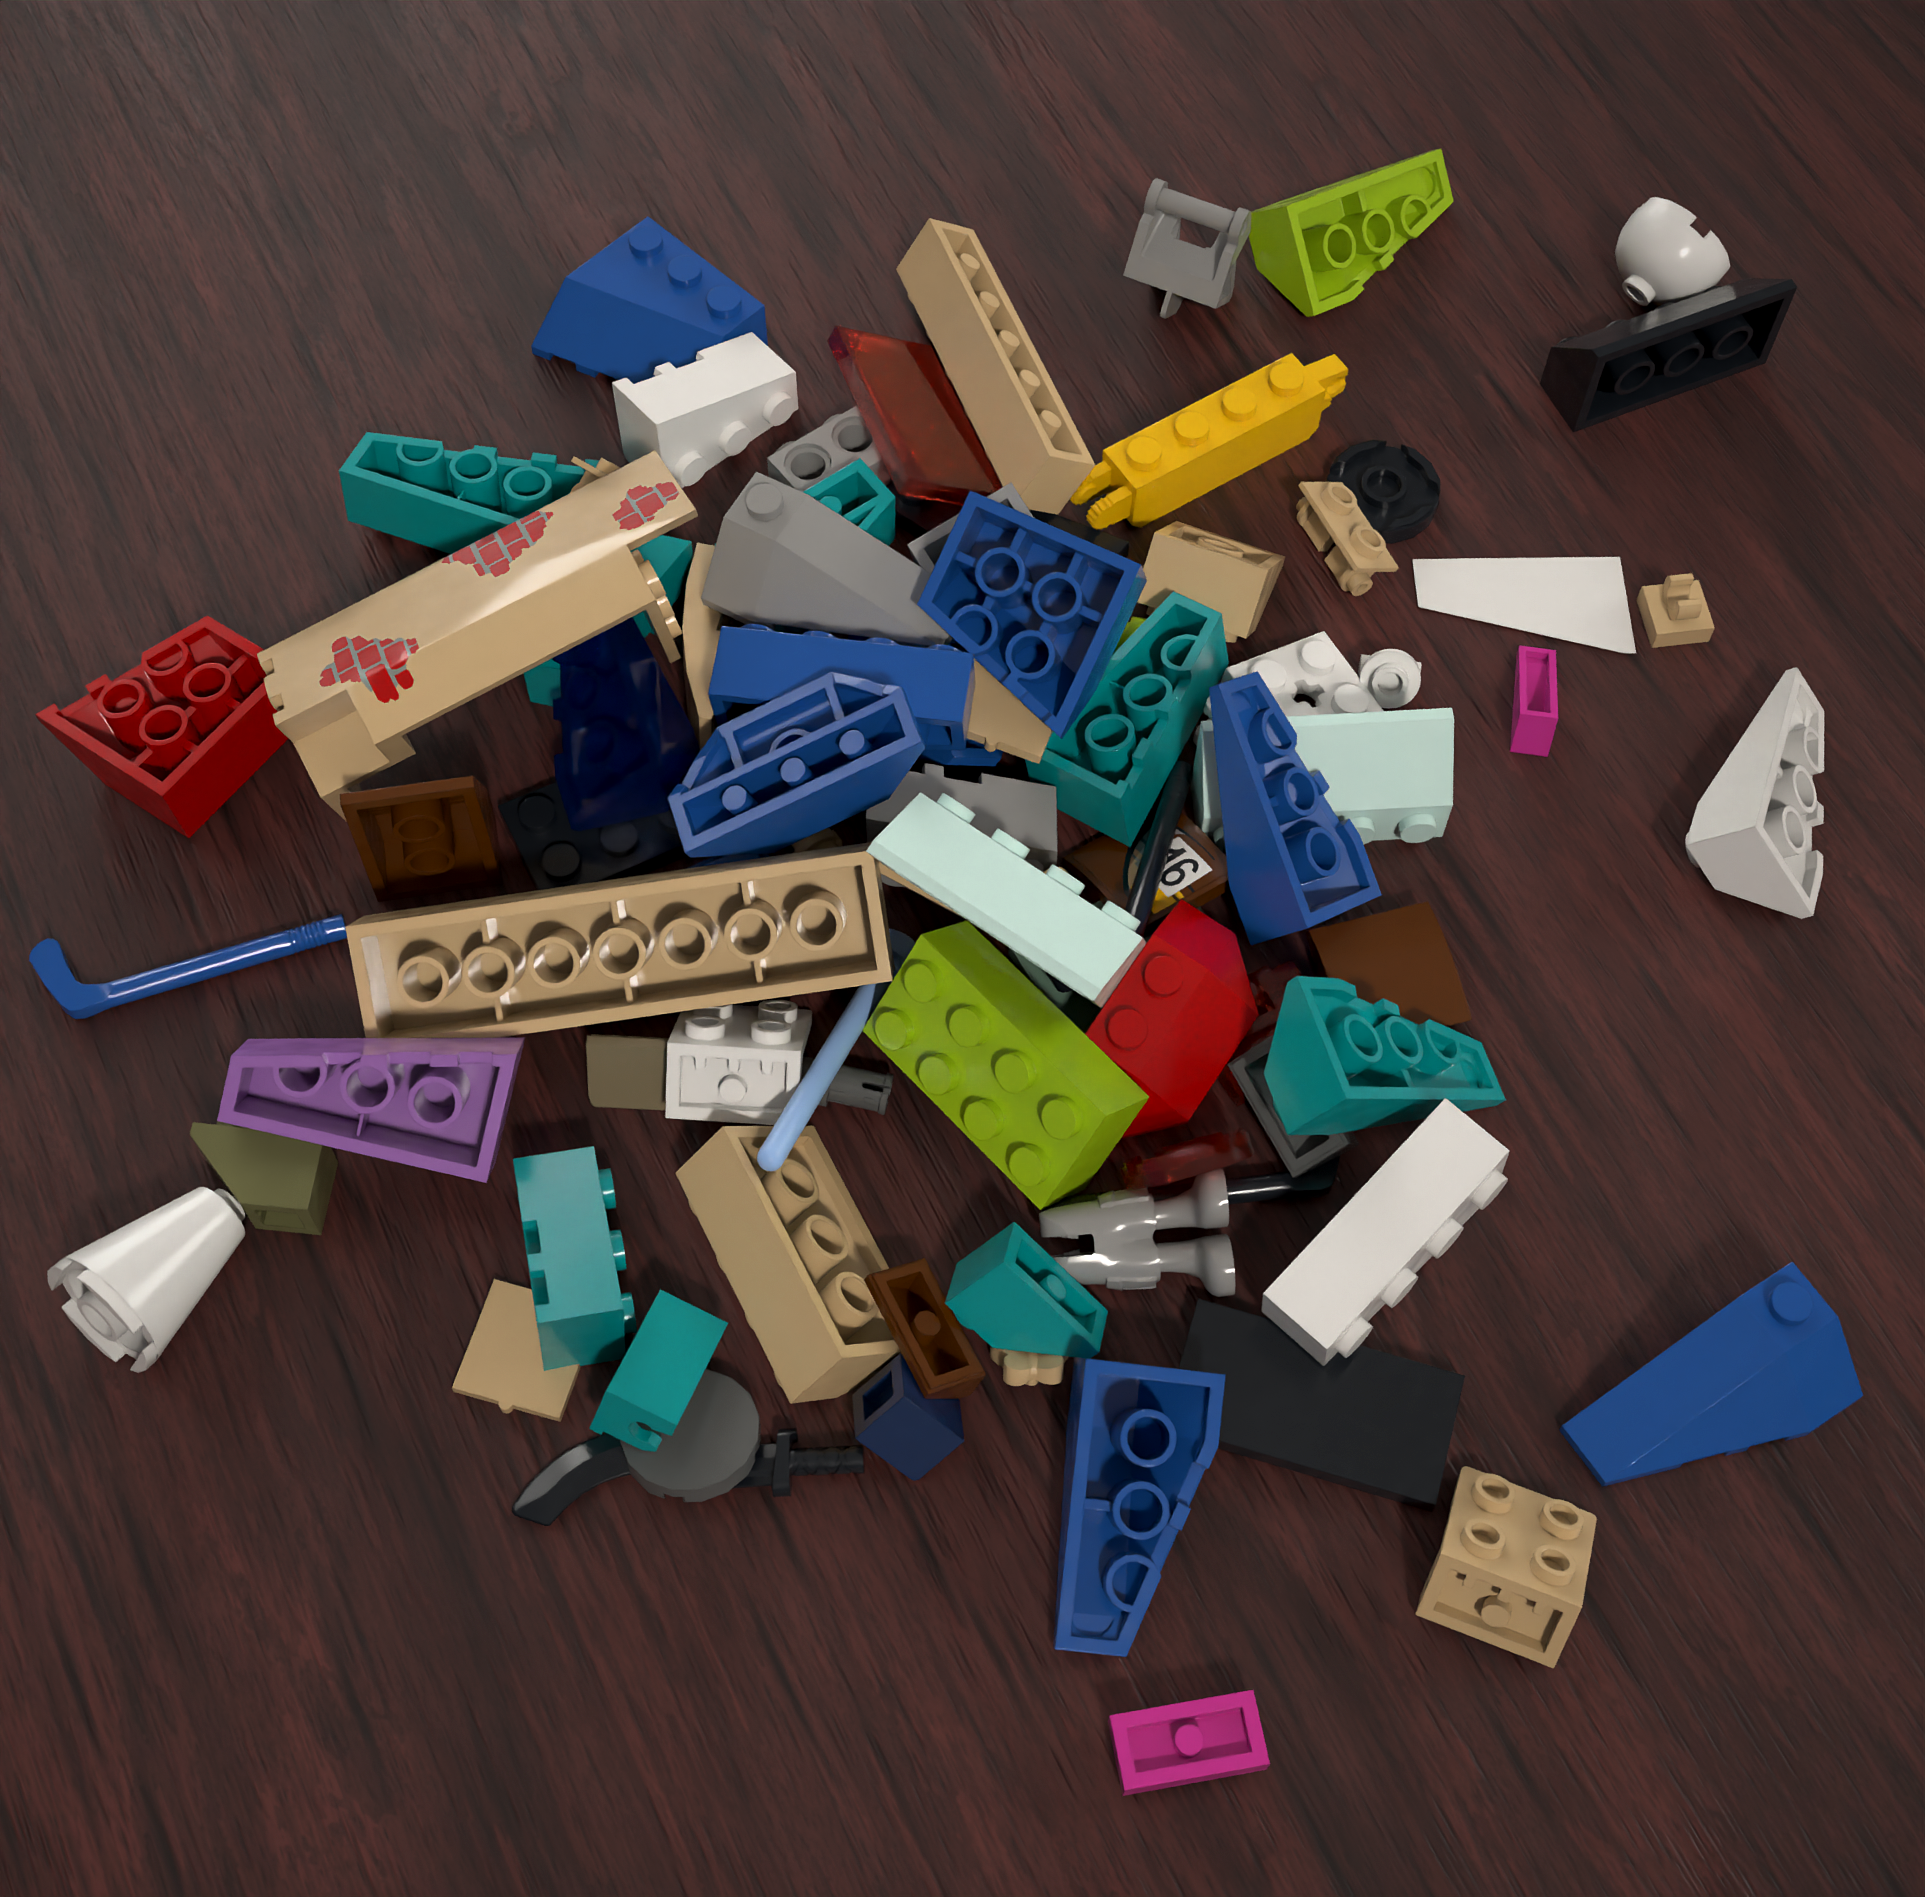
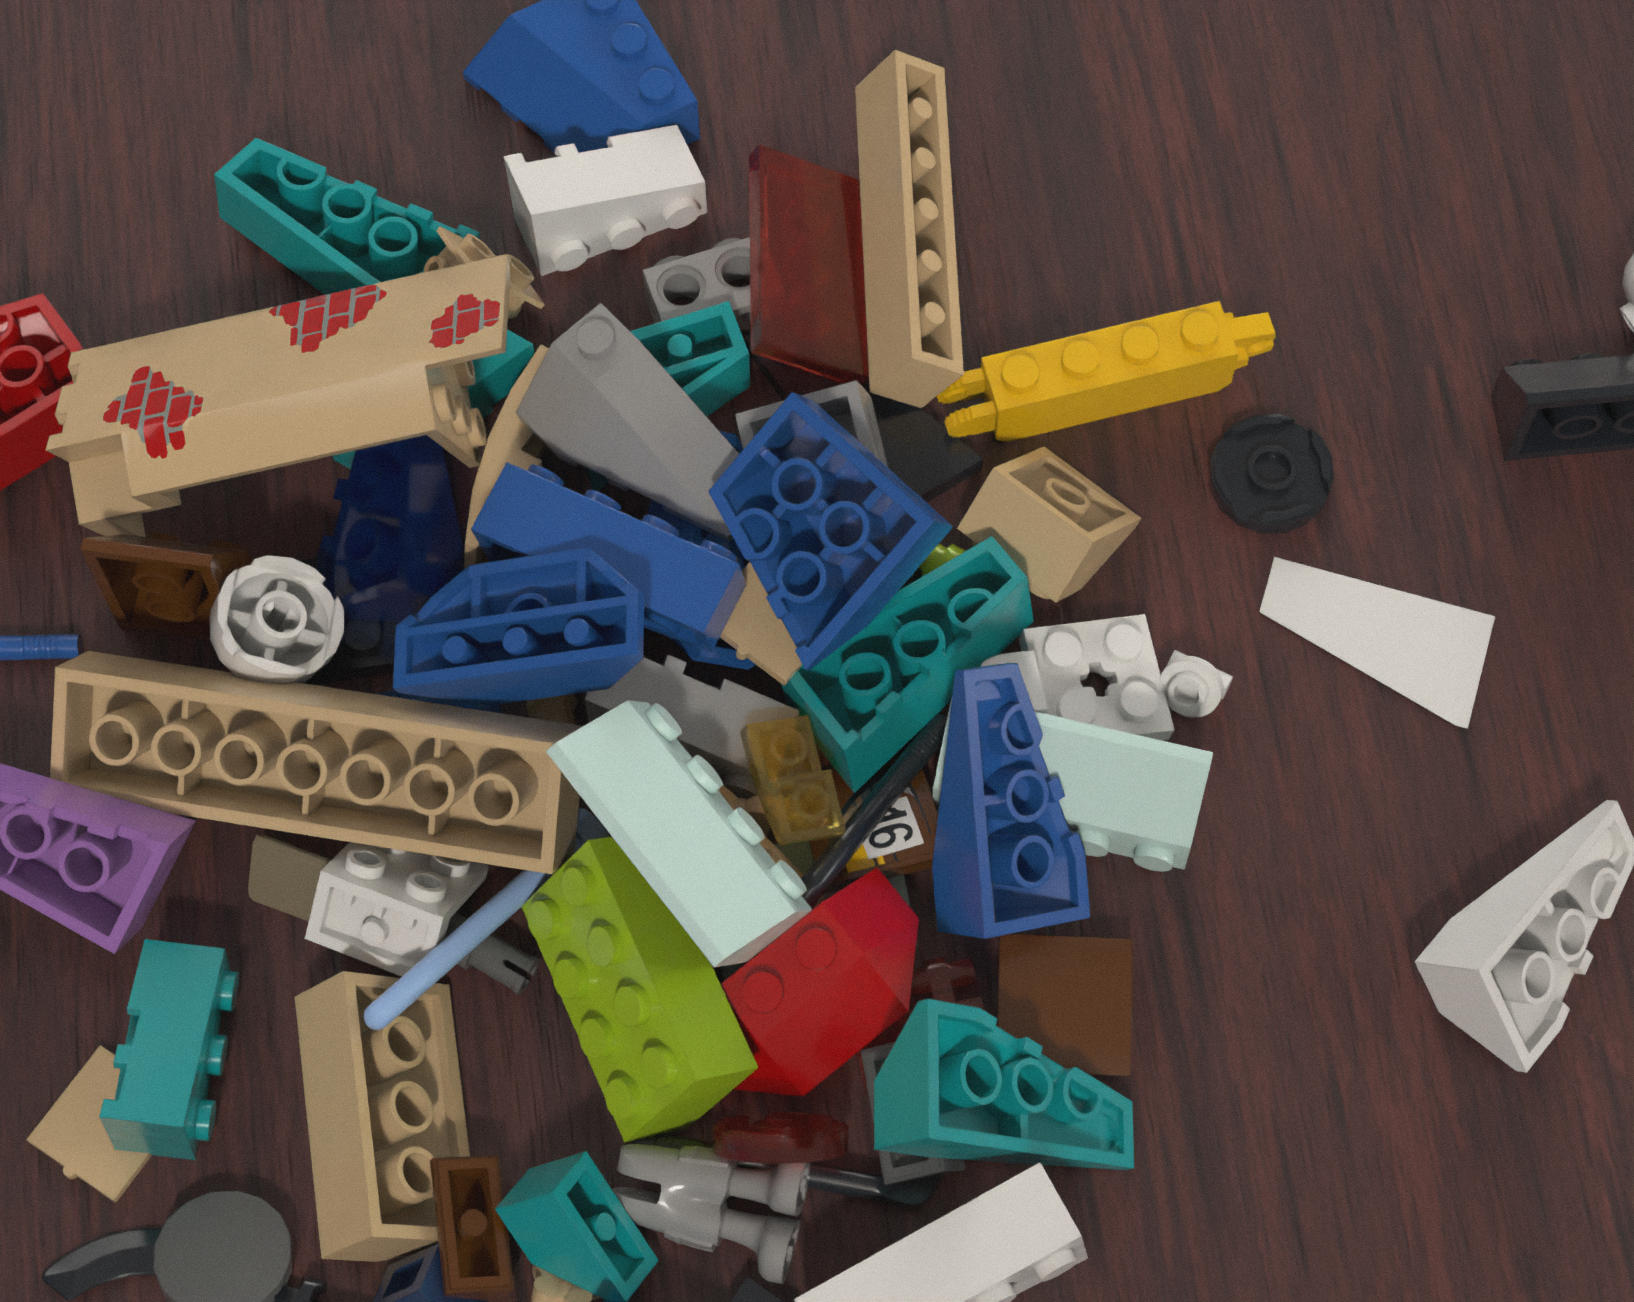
camera: 20 degrees right, 5 degrees up
(541, 835) = (275, 621): none -> white cylinder
(658, 1372) = (209, 1189): teal hinge -> none
(1074, 842) = (790, 782): none -> clear yellow slope
(1179, 266) = (1136, 166): light grey piece -> none
(1332, 516) = (1209, 508): tan hinge -> none
(1337, 236) = (1332, 169): lime wedge -> none
(1534, 701) = (1336, 750): dark pink piece -> none
(1675, 612) = (1524, 698): tan tile -> none

